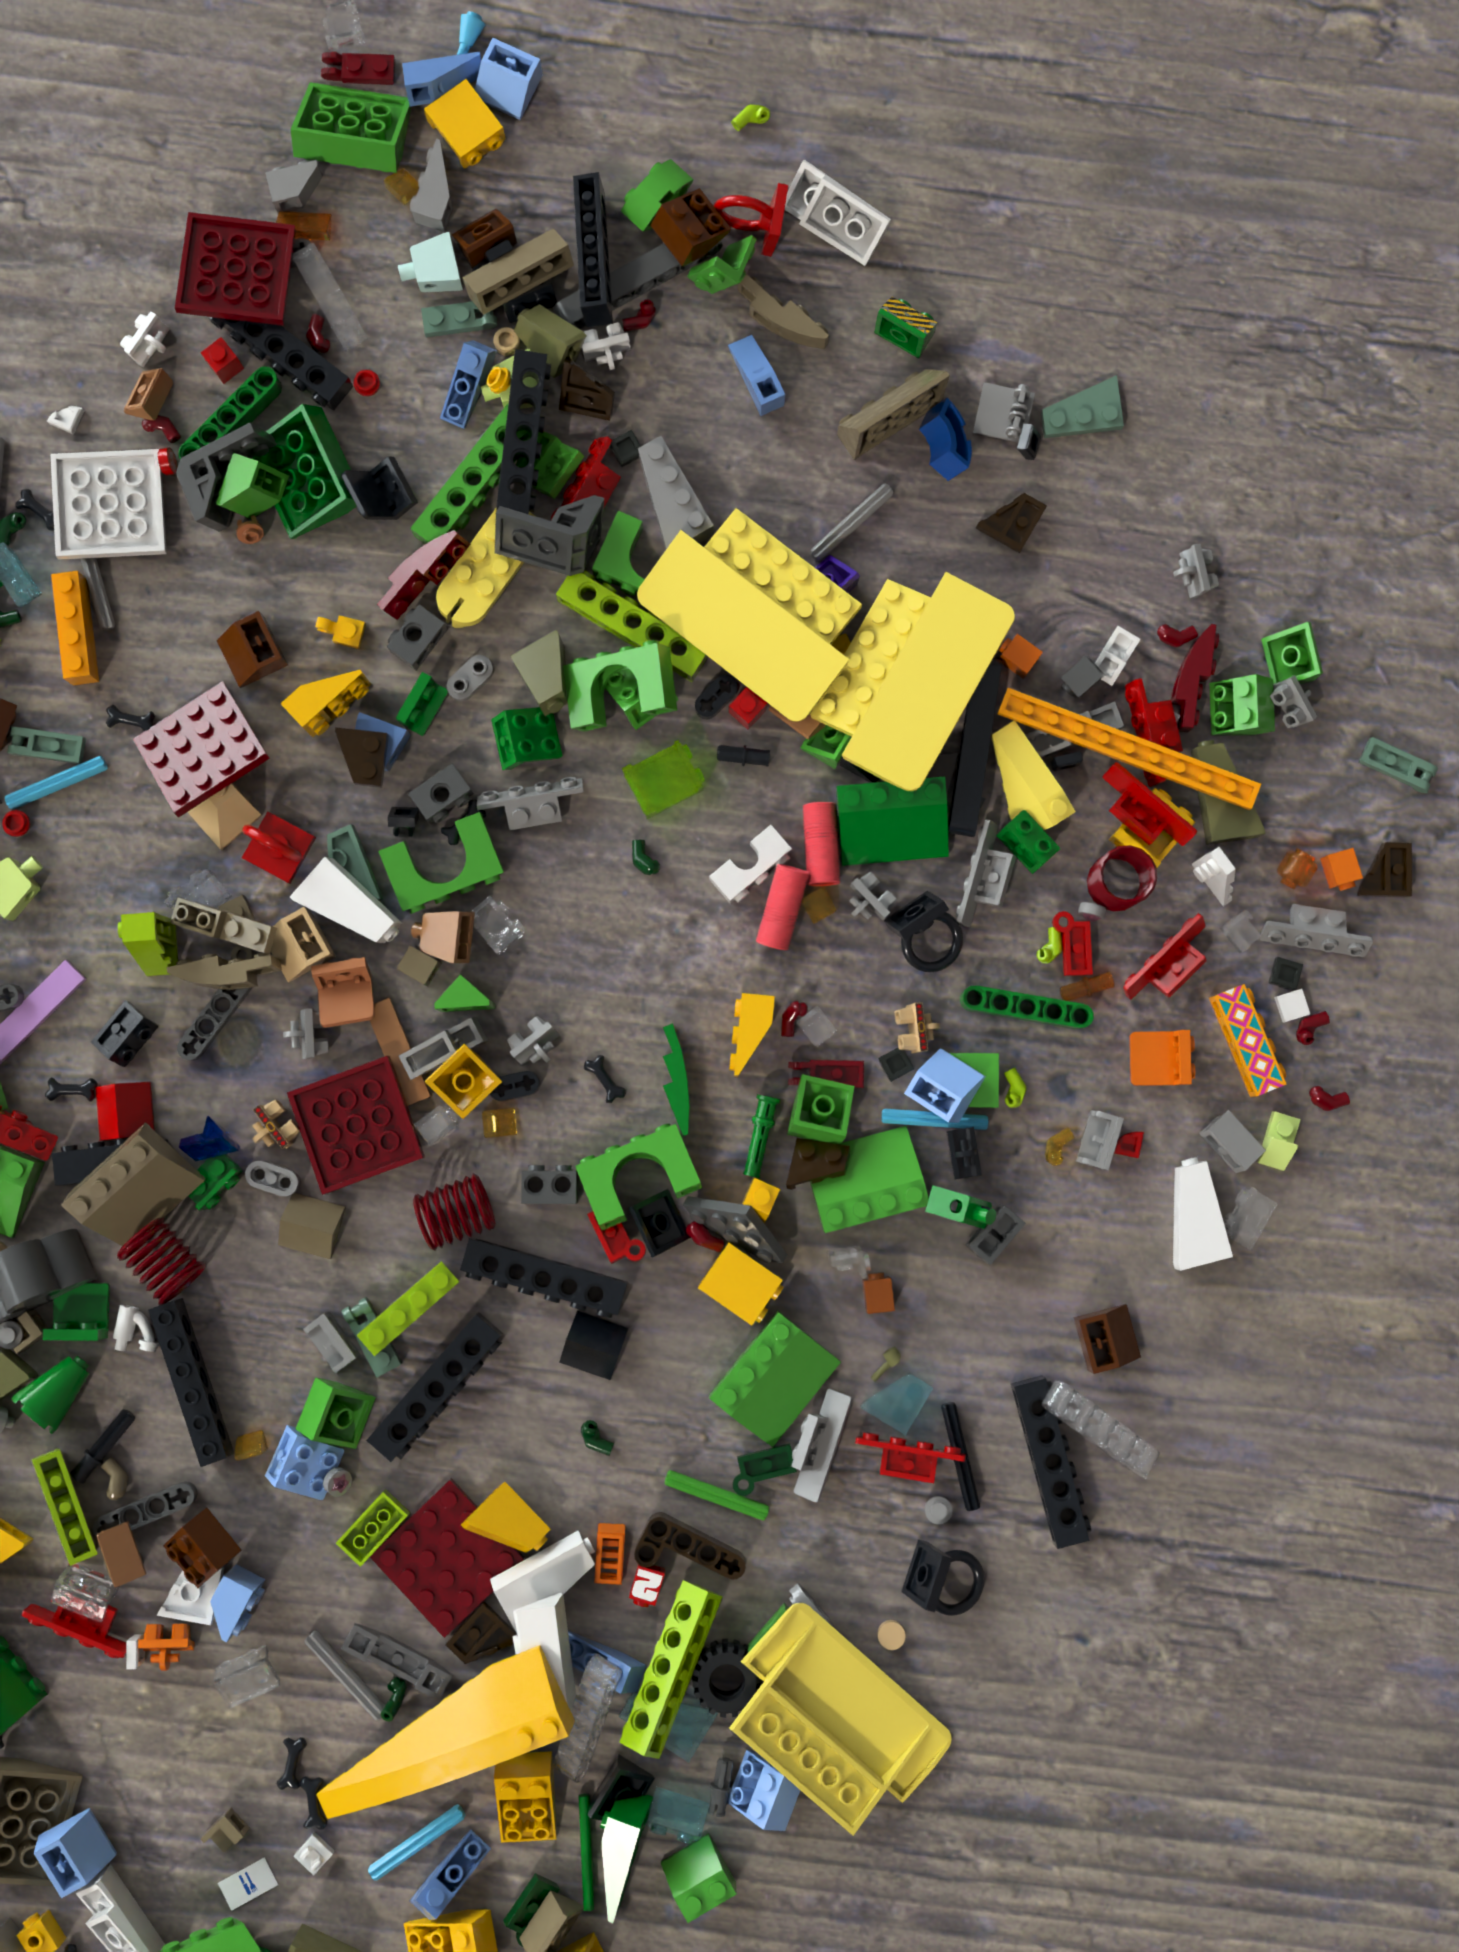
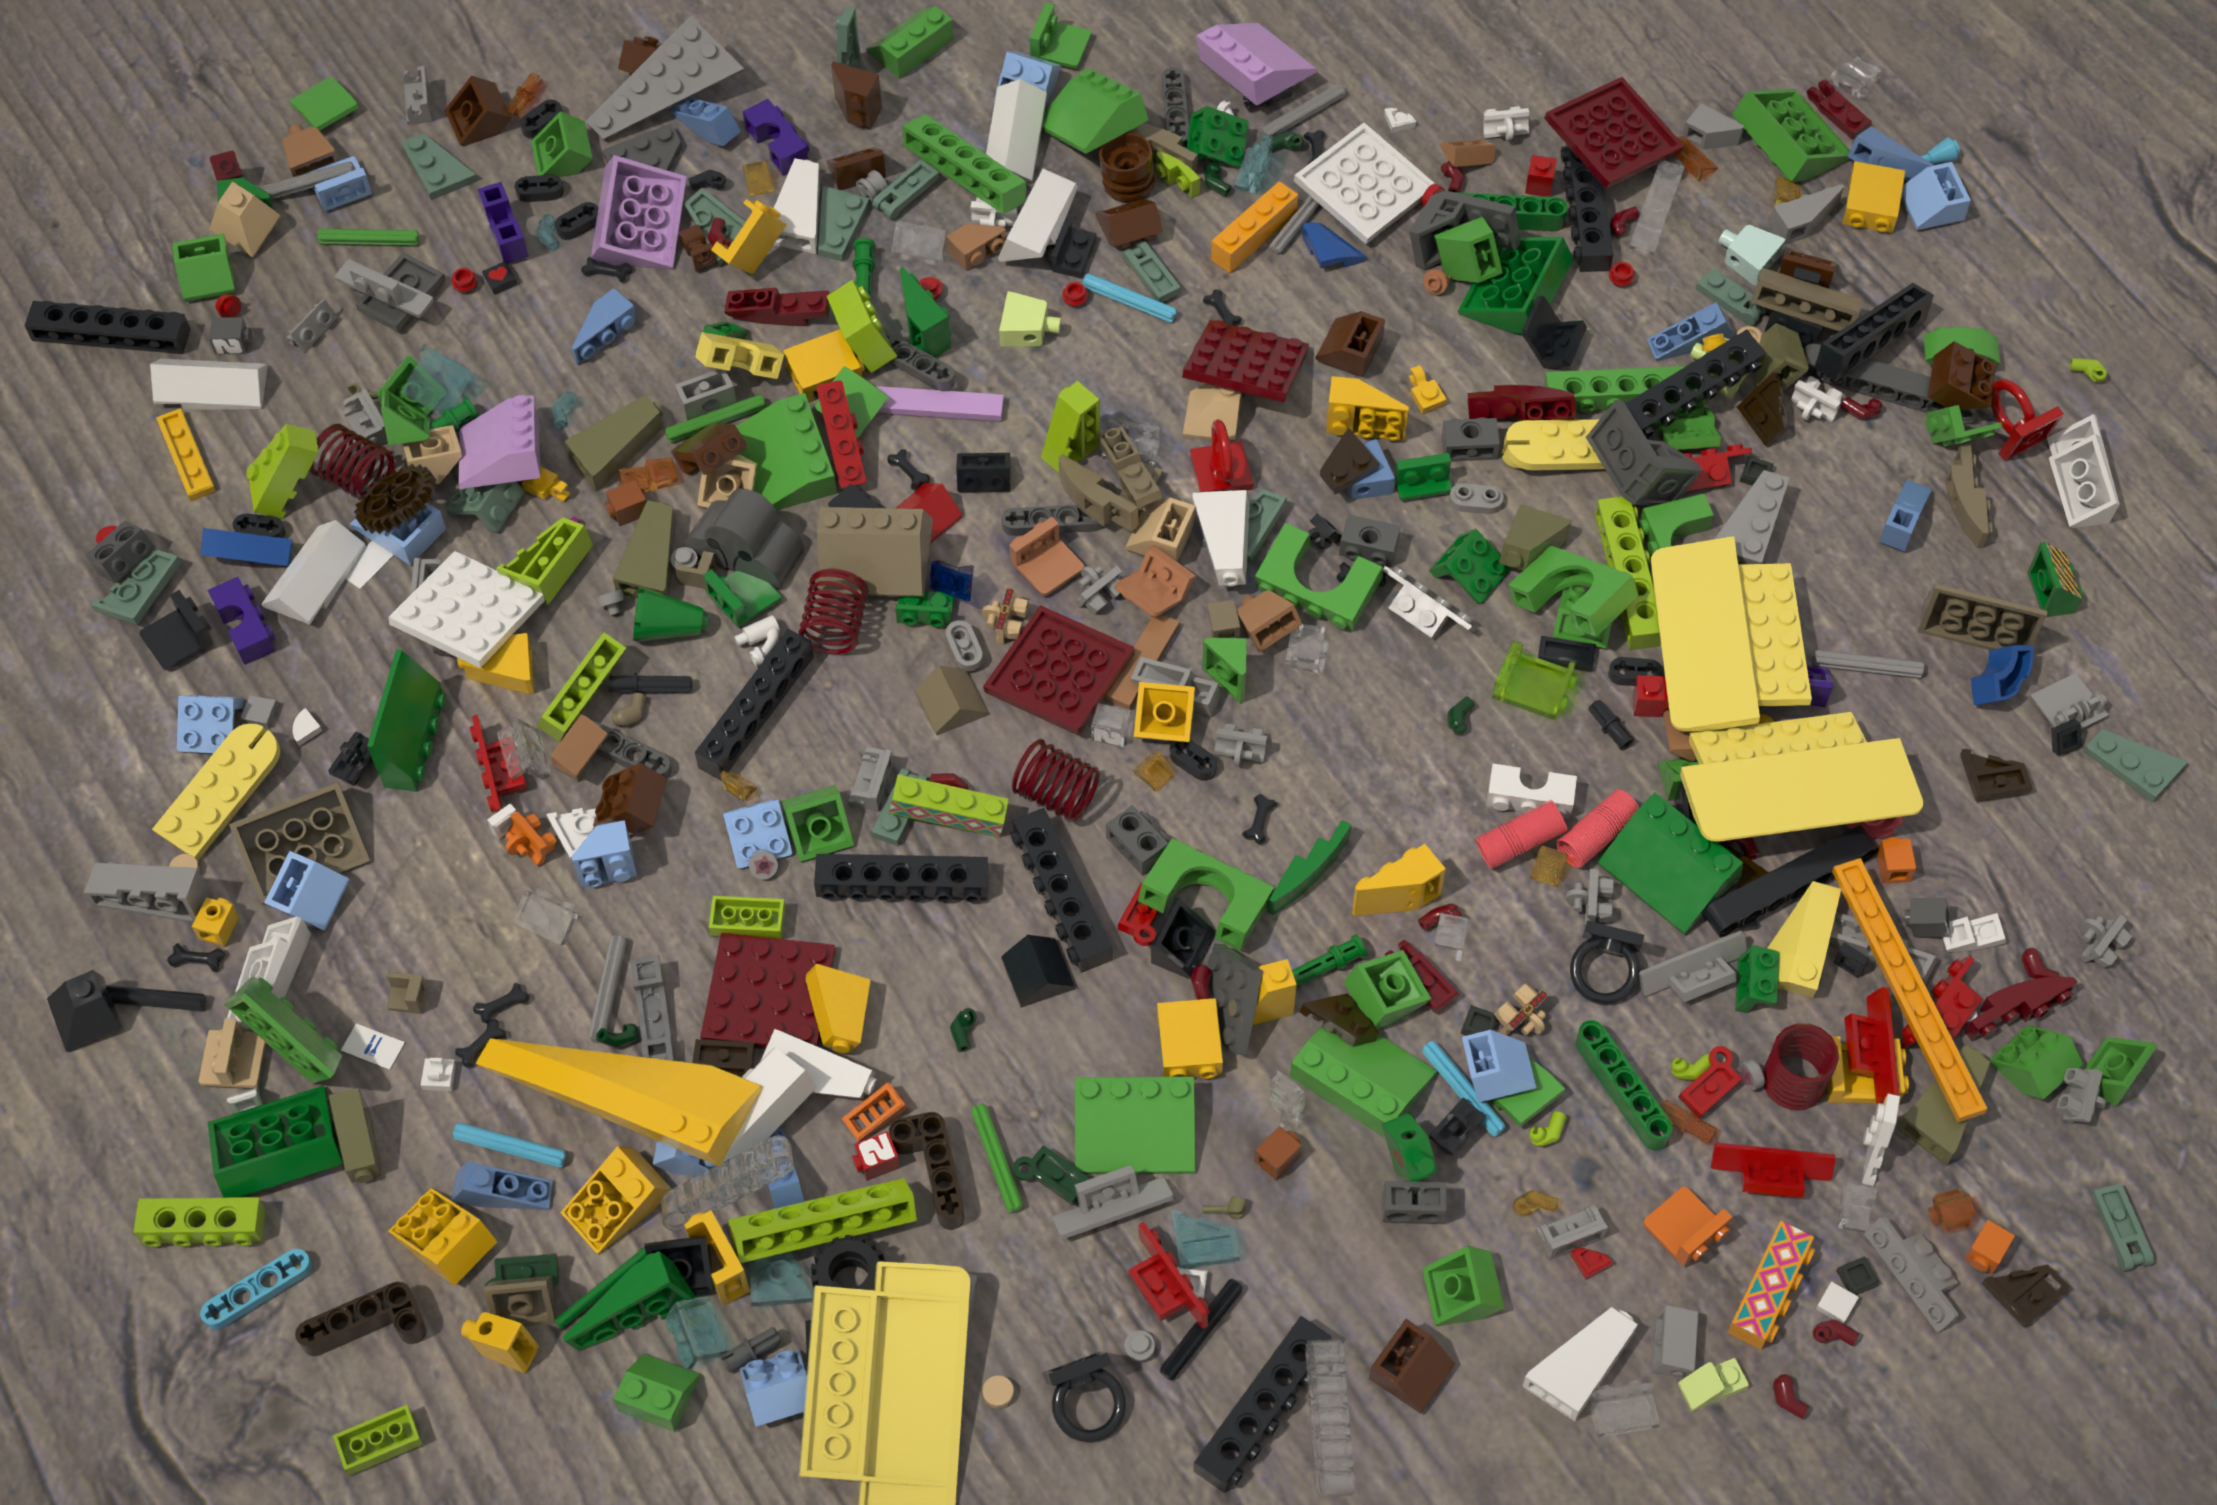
camera: 55 degrees right, 25 degrees down
(144, 584) = (1329, 246): none -> blue slope
(248, 1053) = (1044, 558): none -> nougat bracket
(383, 1283) = (949, 779): none -> dark red arm
(622, 1757) = (731, 1280): none -> yellow panel
(657, 733) = (1565, 651): none -> black tile
(922, 1432) = (1198, 1280): none -> white tile
(1079, 1251) = (1463, 1287): none -> bright green slope

